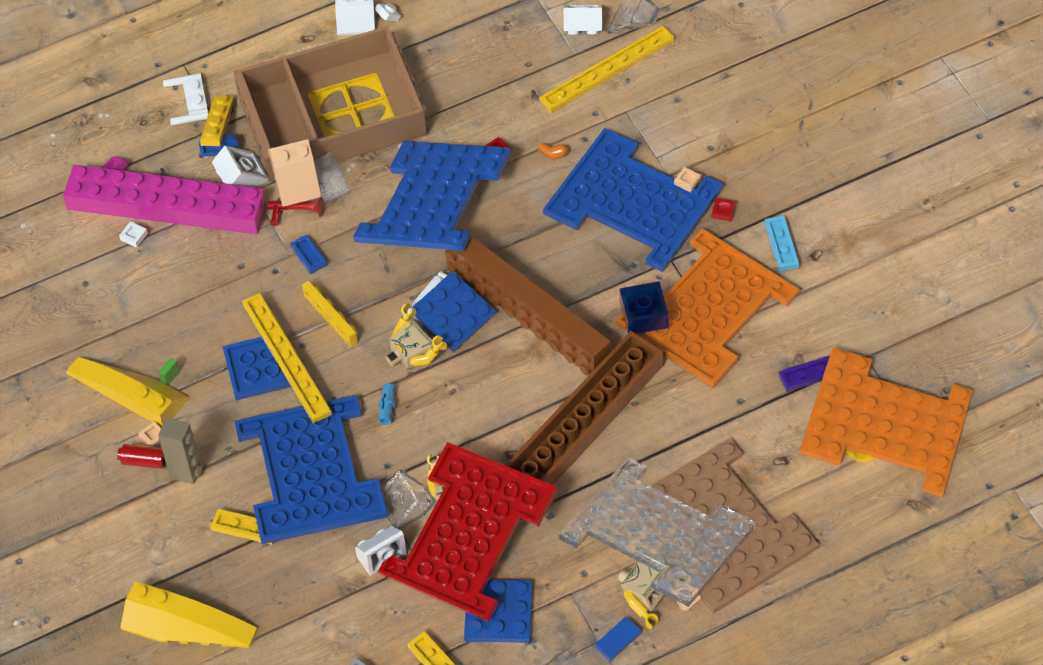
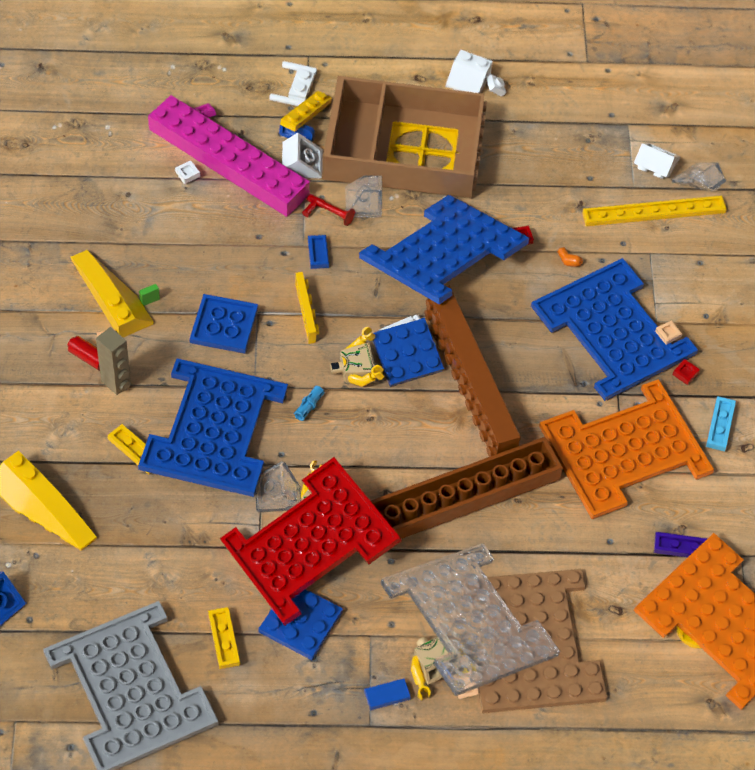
camera: 20 degrees right, 0 degrees up
(286, 358) = (248, 328): yellow tile -> none
(294, 172) = (340, 178): light nougat slope -> none
(380, 547) = (232, 519): white slope -> none
(643, 307) = (567, 422): clear blue brick -> none

